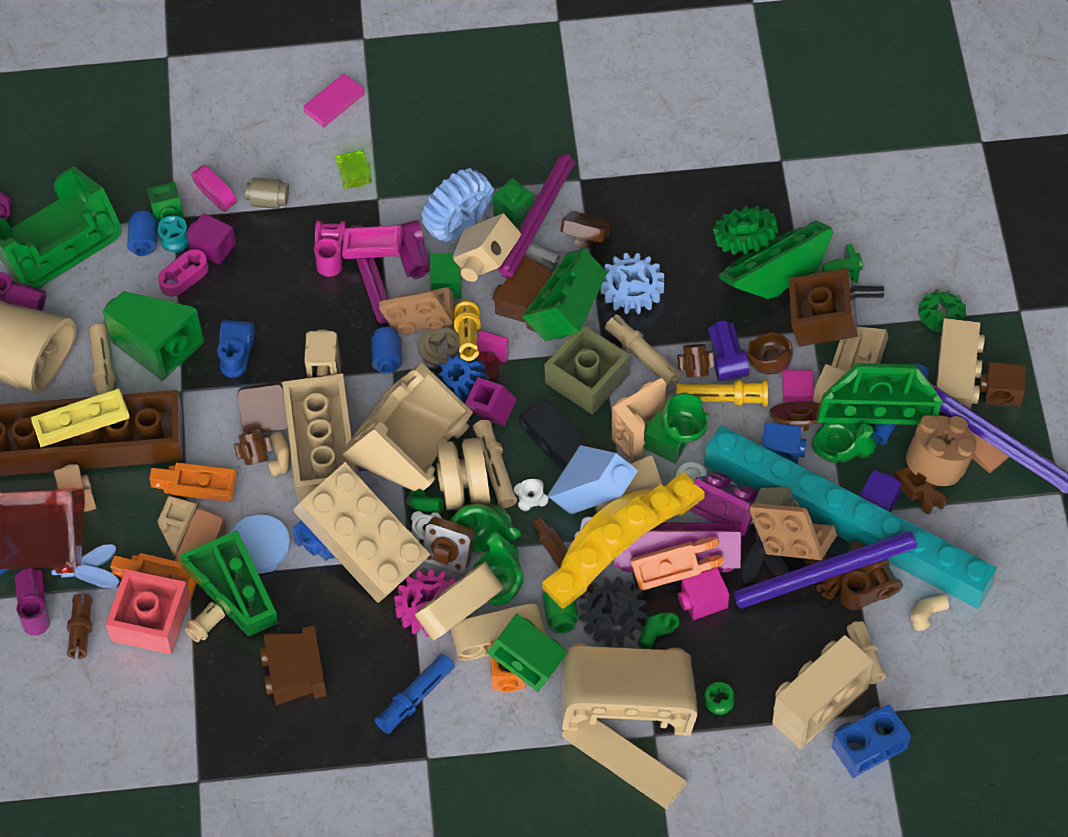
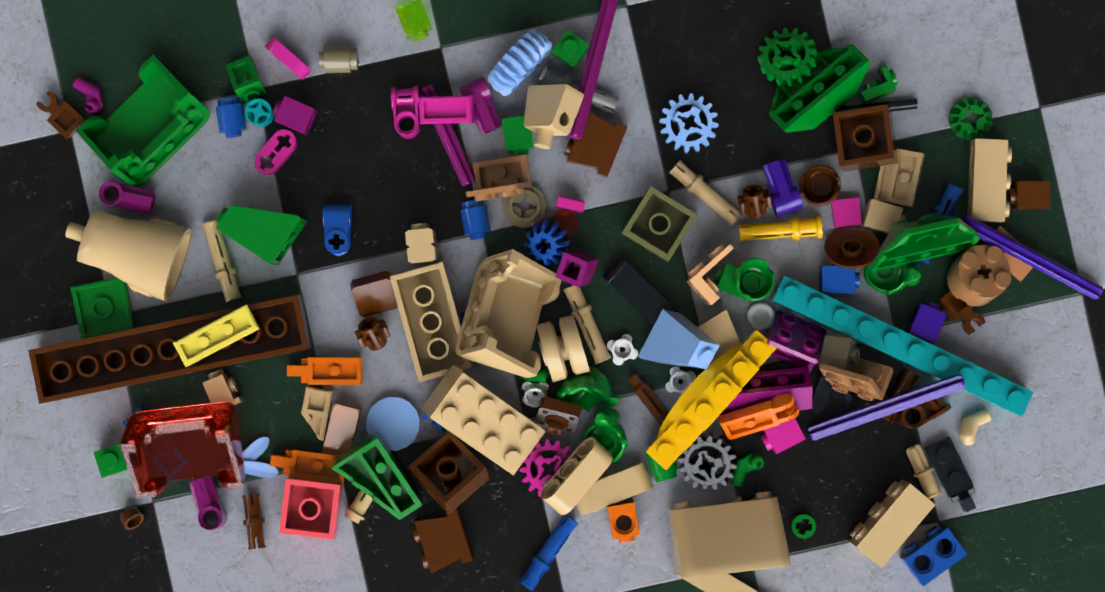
camera: 10 degrees left, 30 degrees up
(282, 454) = (397, 330): tan arm -> none
(313, 586) = (449, 472): none -> reddish brown brick
(467, 328) = (545, 190): yellow pin -> none
(527, 652) = (642, 521): green brick -> none
(566, 296) = (634, 157): green wedge -> none
(586, 228) = (640, 68): reddish brown piece -> none
(899, 658) = (951, 472): none -> black hinge

